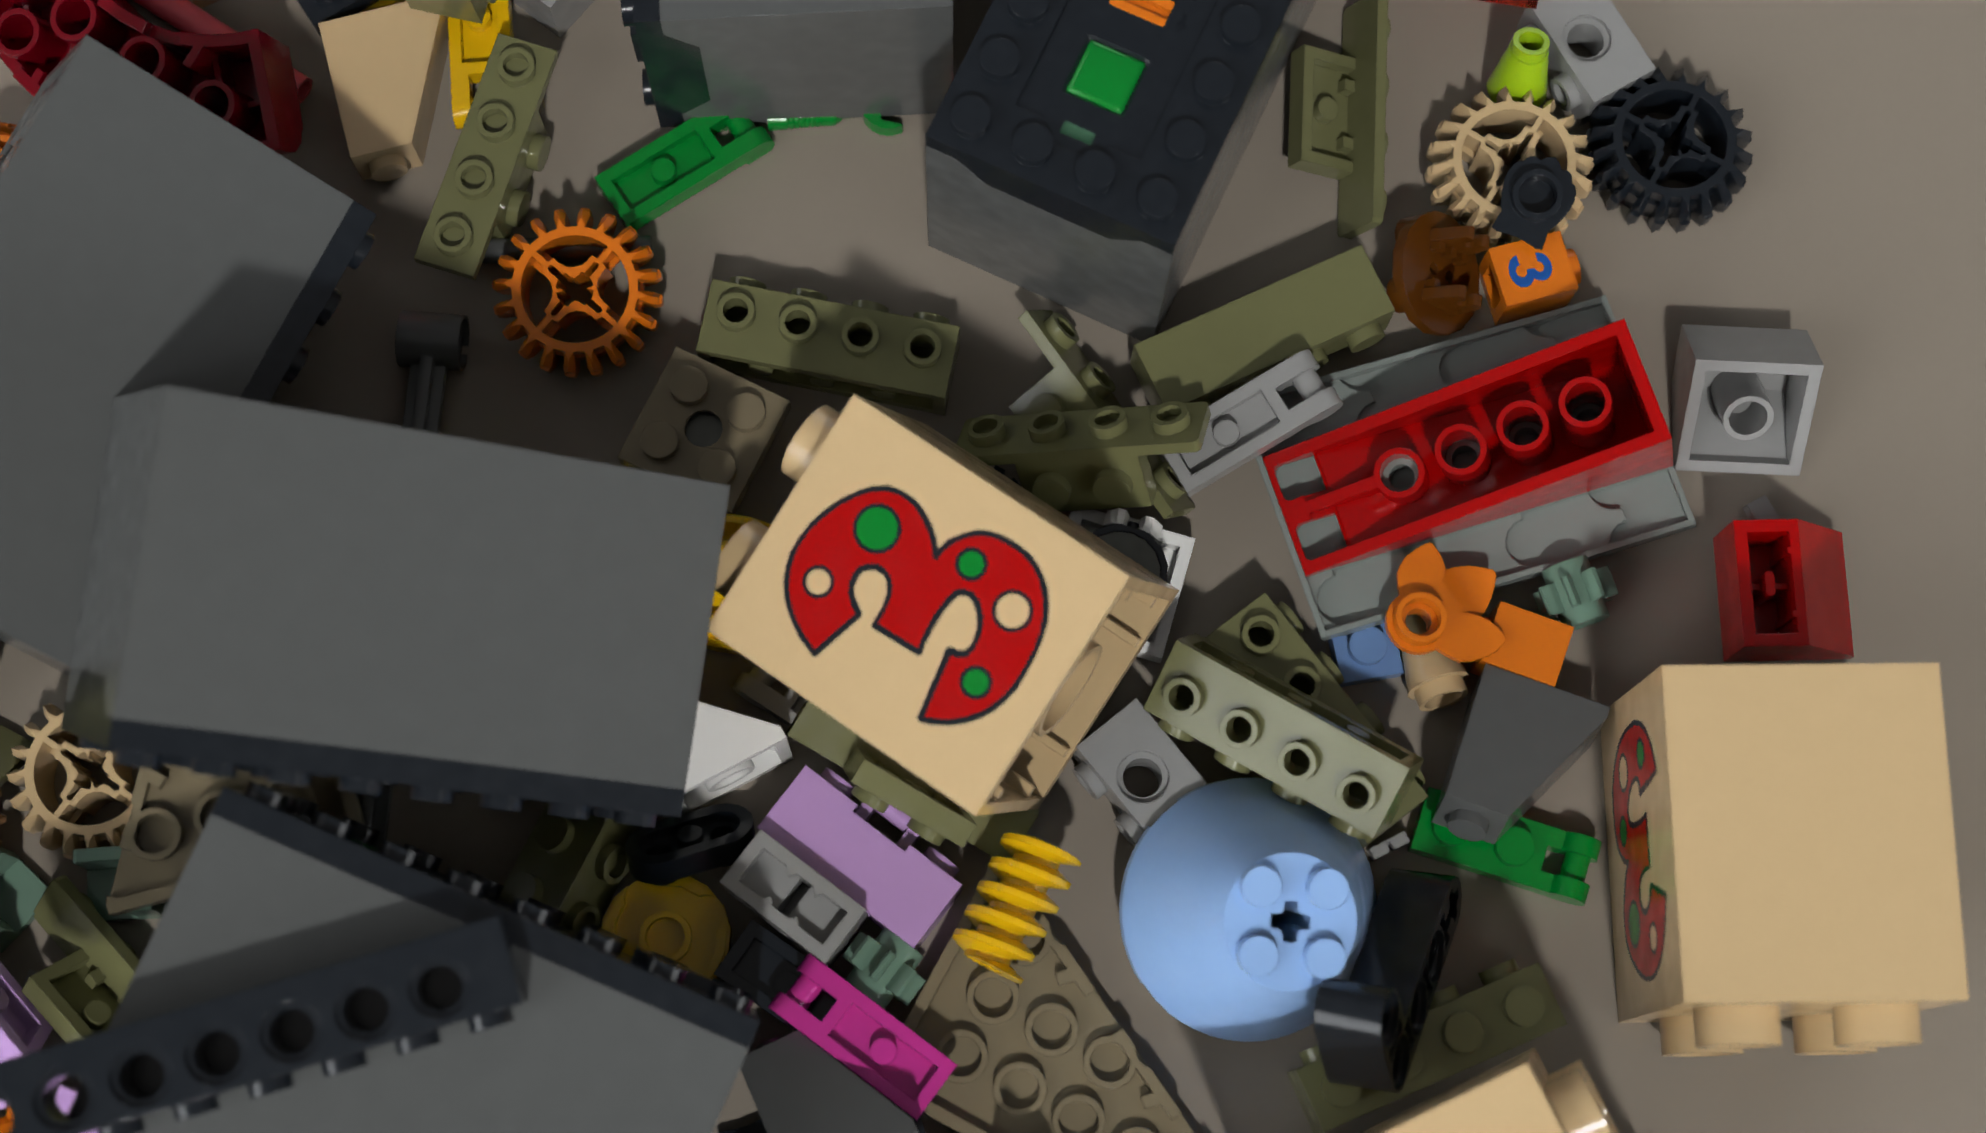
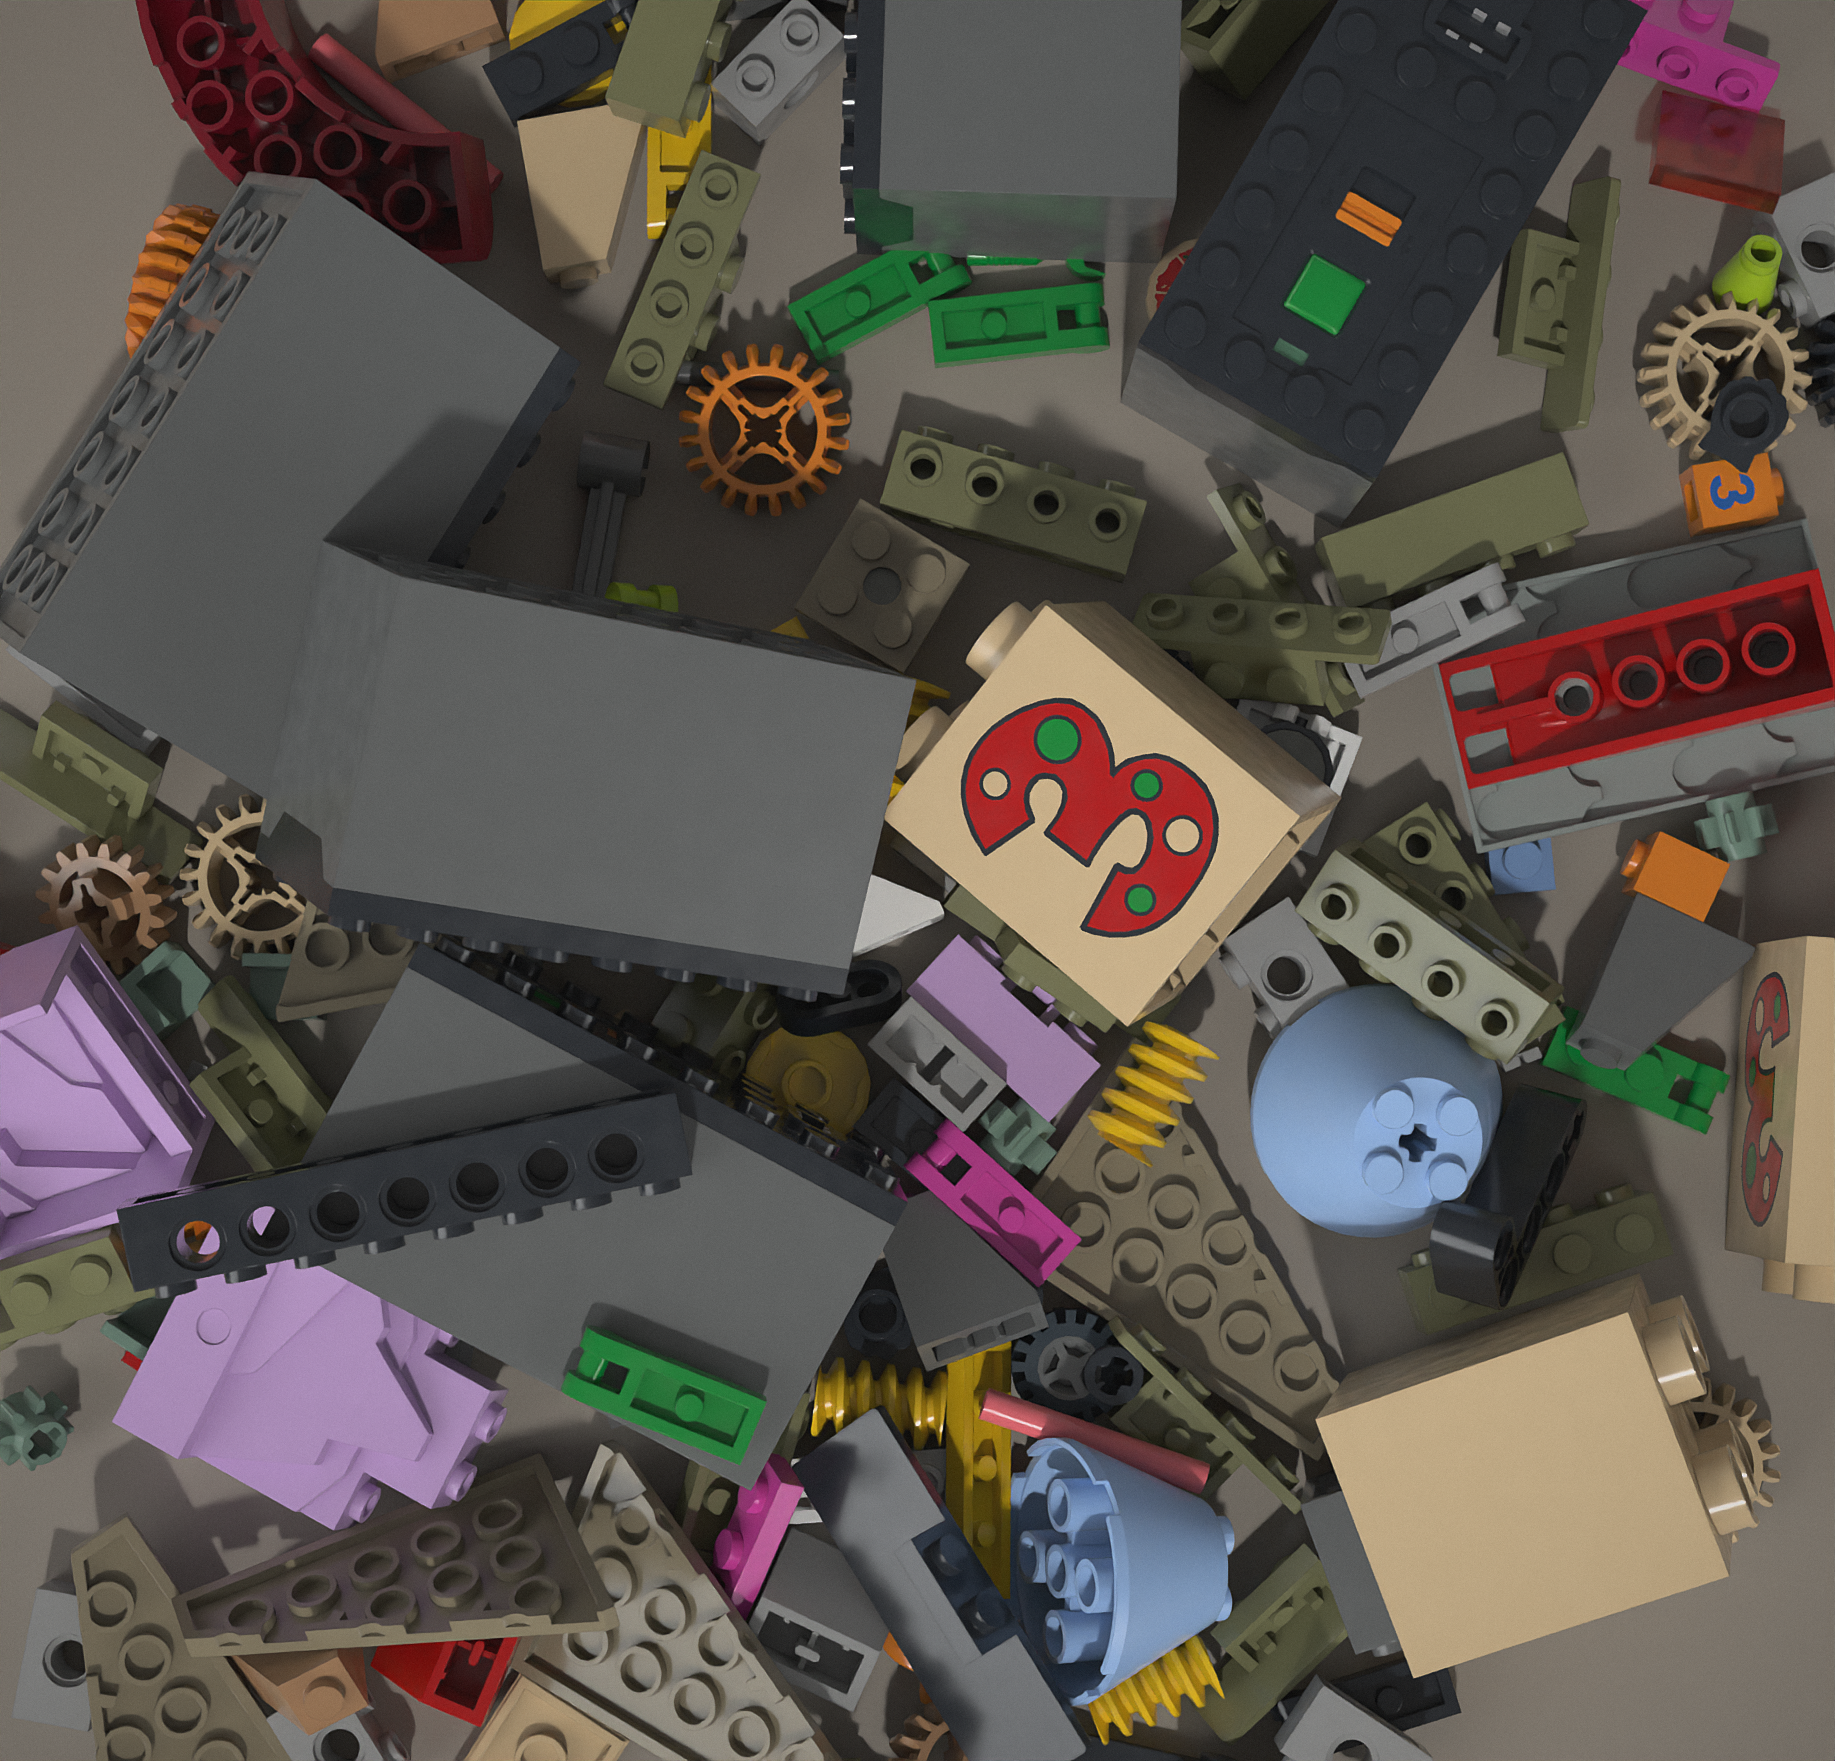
camera: 10 degrees right, 10 degrees up
(820, 178) = (1016, 325): none -> green plate
(1432, 677) = (1582, 884): tan cone -> none
(1436, 272) = (1635, 484): reddish brown plate -> none
(1450, 605) = (1609, 833): orange plate -> none

